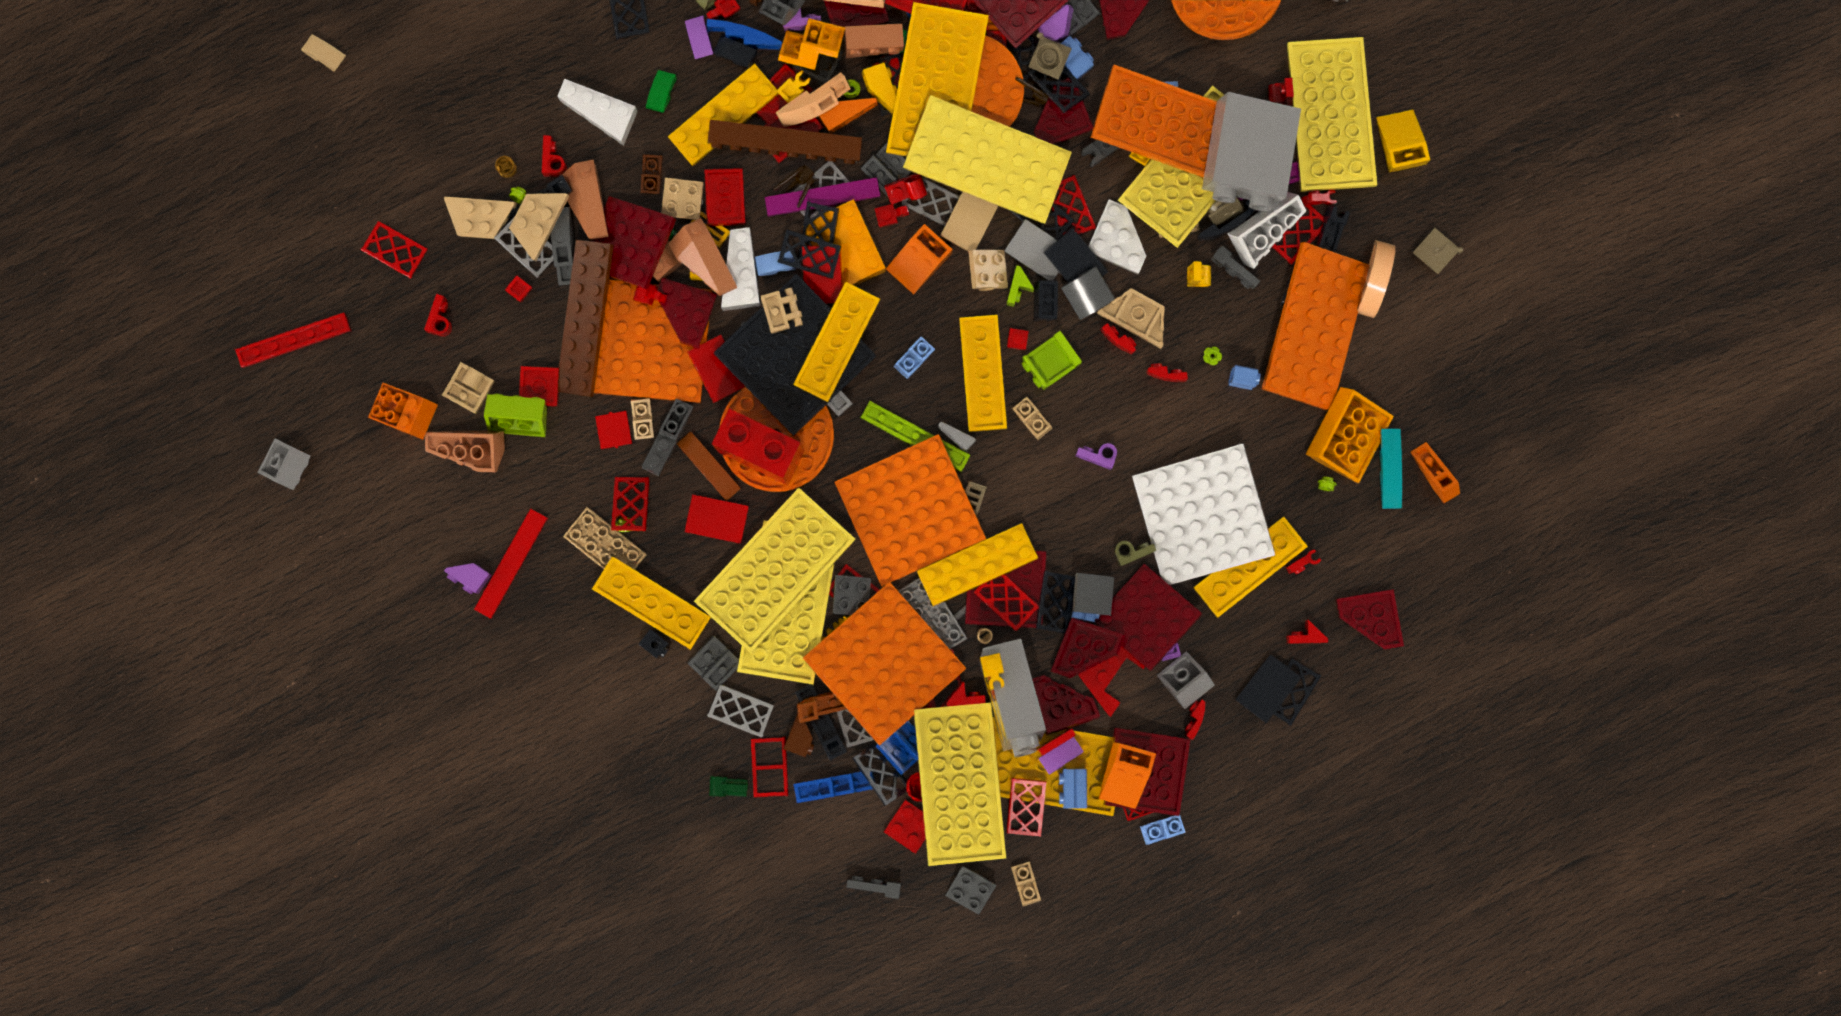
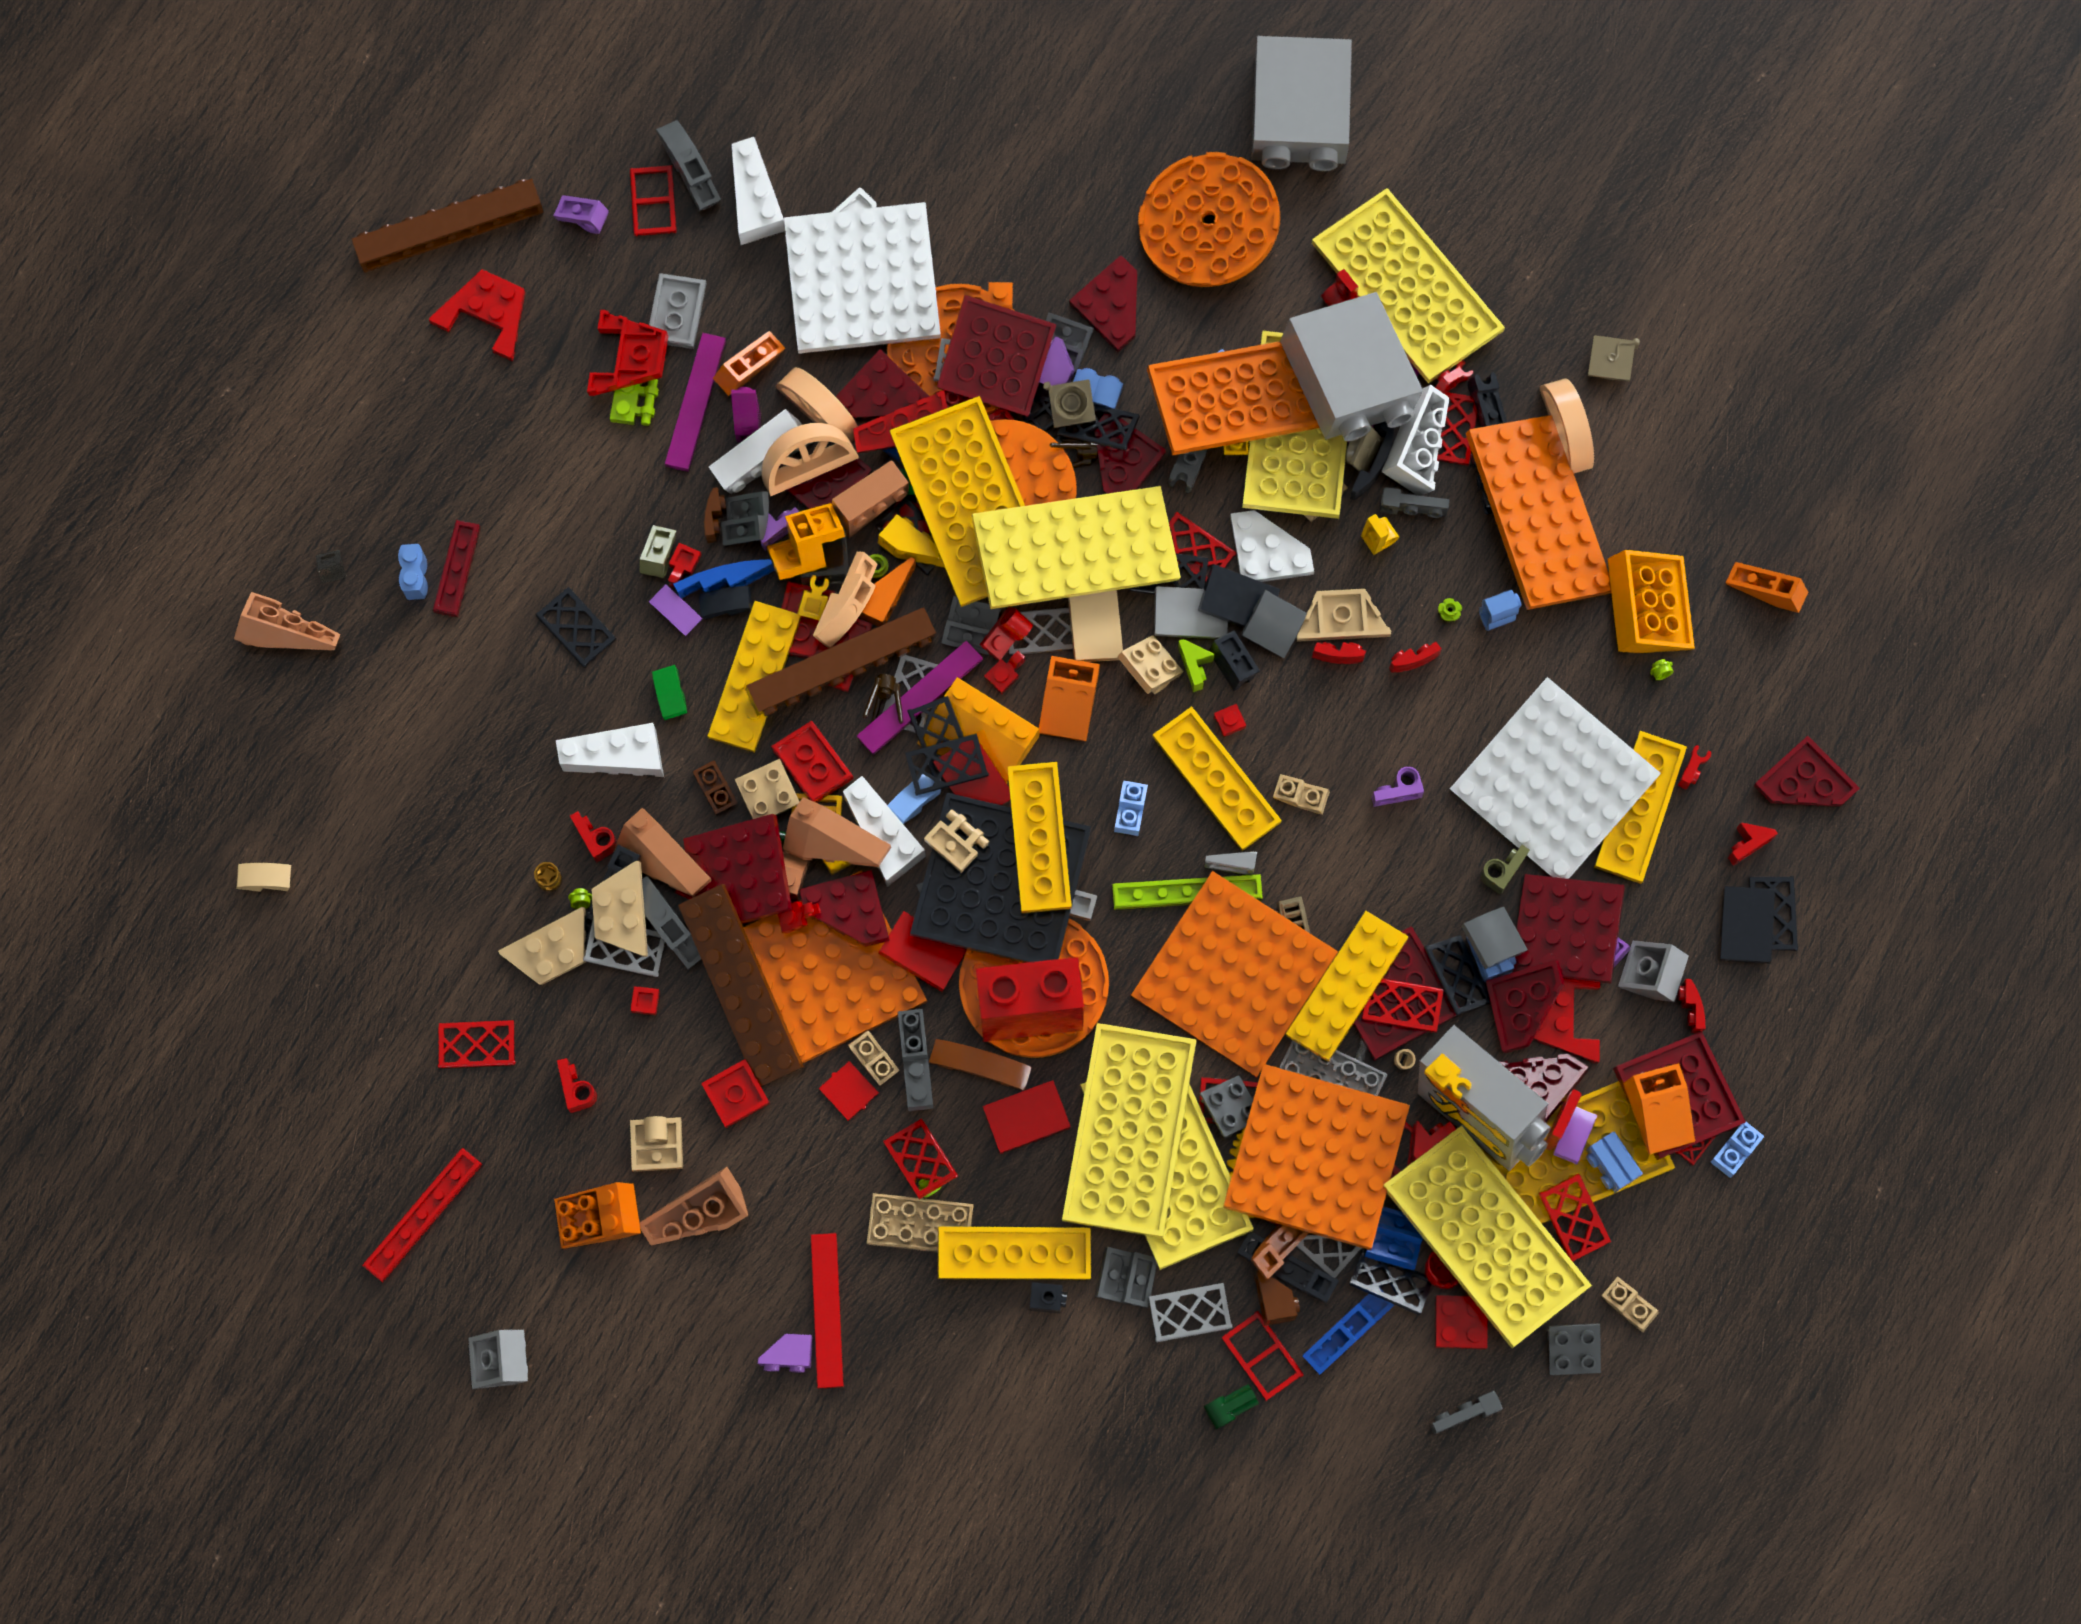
camera: 30 degrees left, 10 degrees down
(516, 415) = (731, 1139): lime slope -> none
(1051, 361) = (1282, 720): lime panel -> none
(1391, 468) = (1719, 611): teal slope -> none
(1402, 141) = (1500, 268): yellow slope -> none

